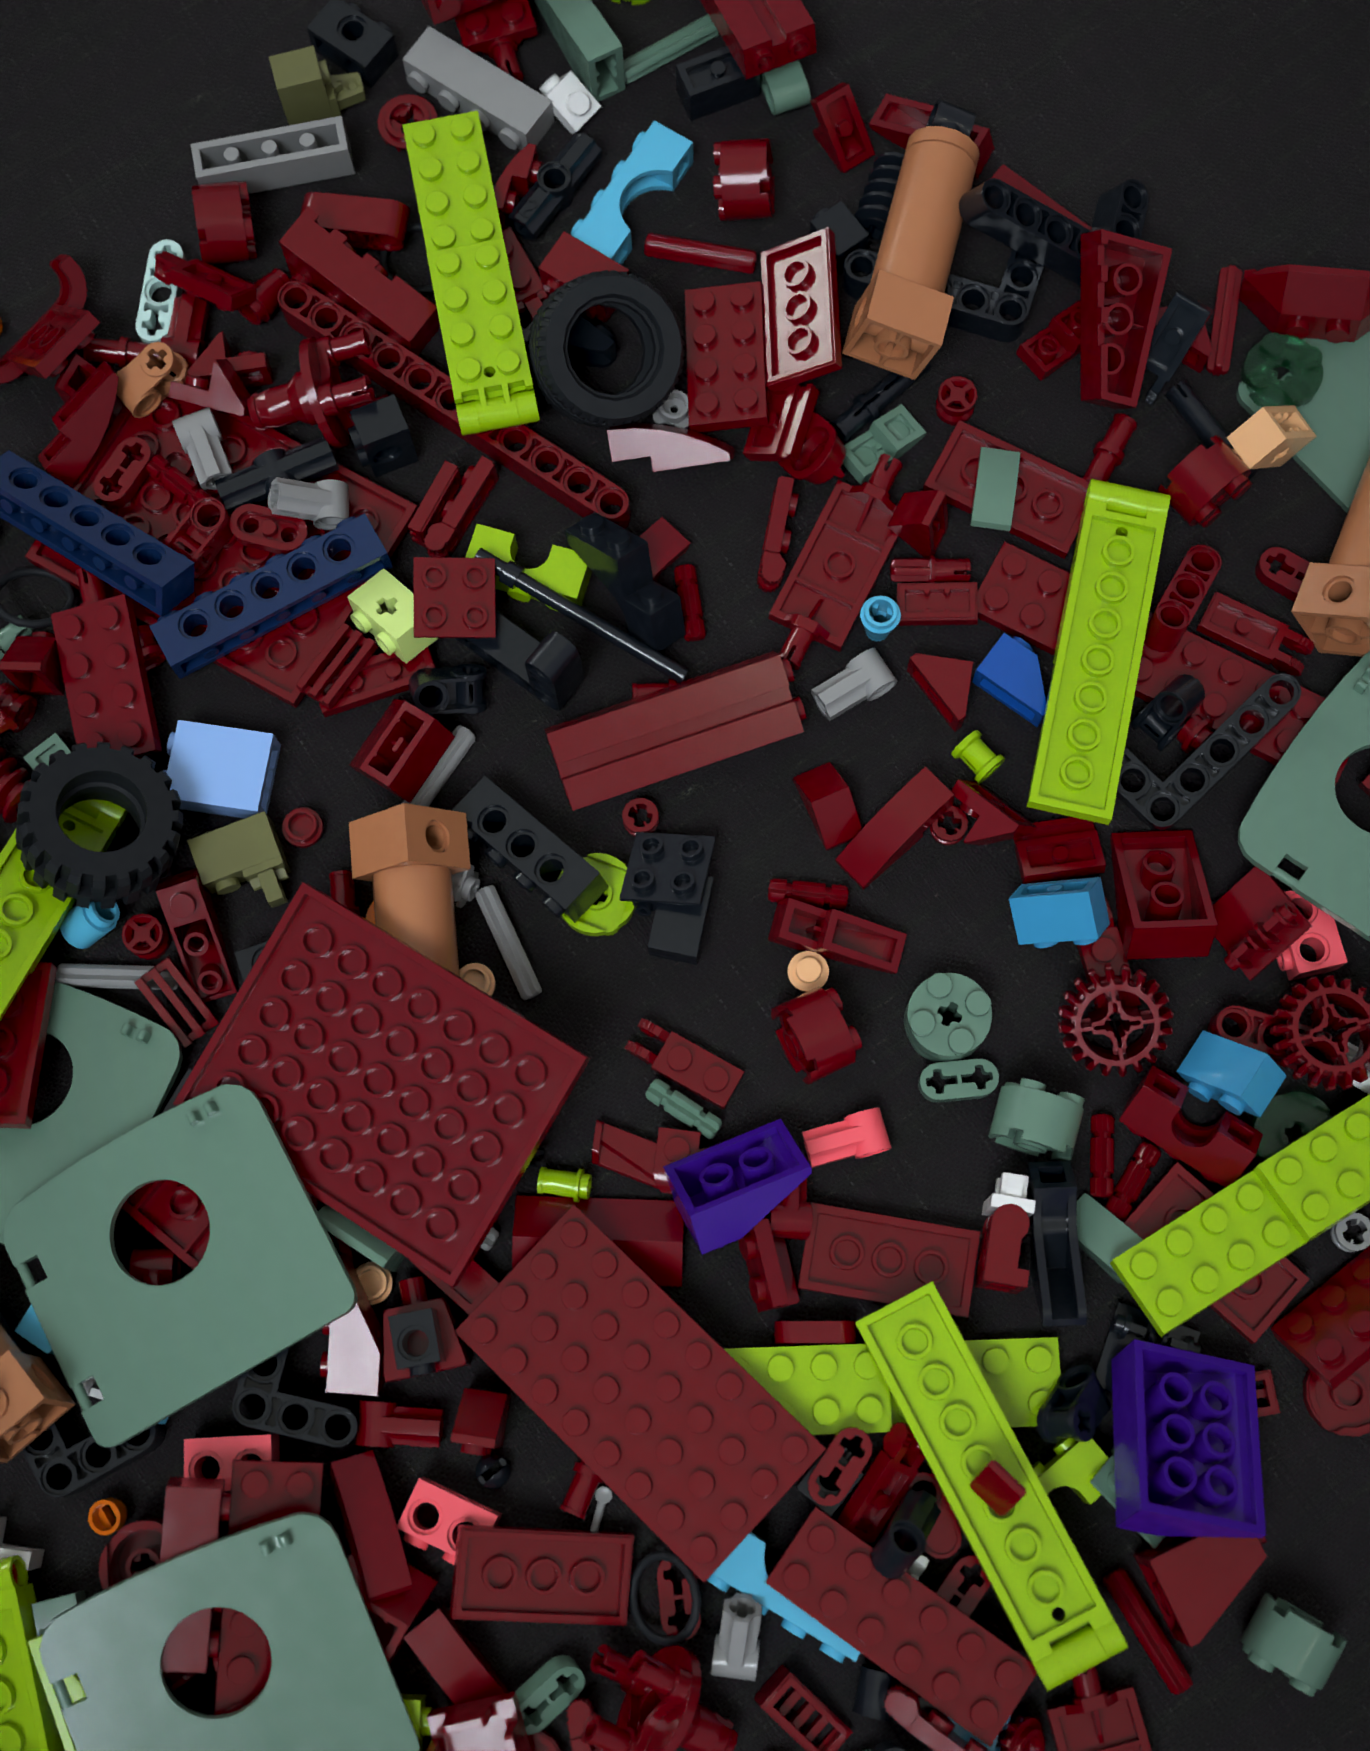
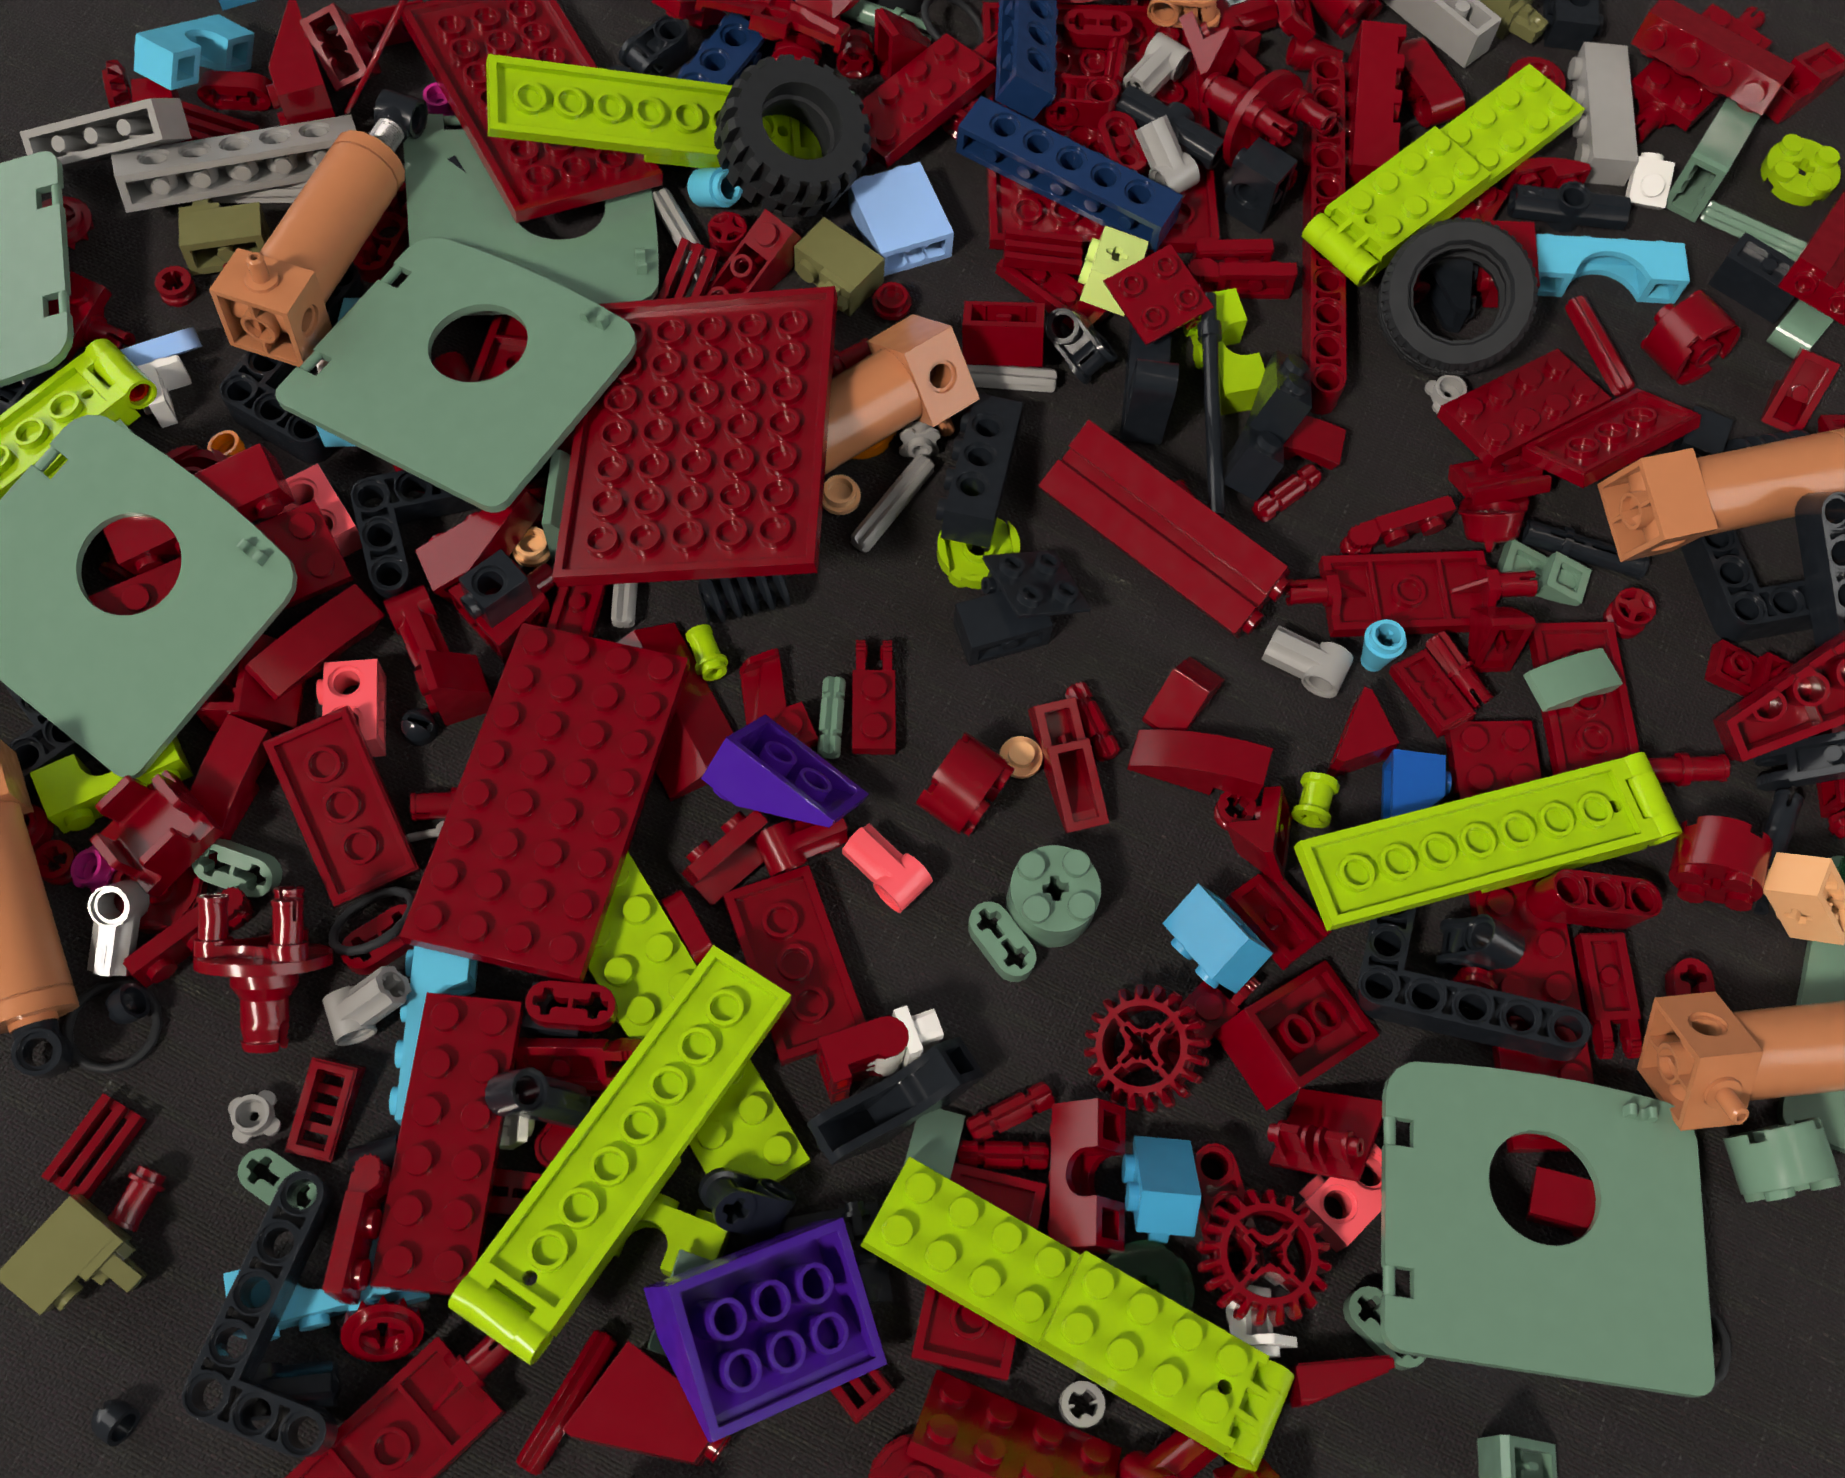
camera: 50 degrees right, 10 degrees down
(652, 813) = (1076, 540): dark red bush -> none
(666, 445) = (1408, 397): slope -> none
(998, 1488) = (623, 1148): dark red slope -> none
(1037, 1120) = (1005, 1022): sand green brick -> none

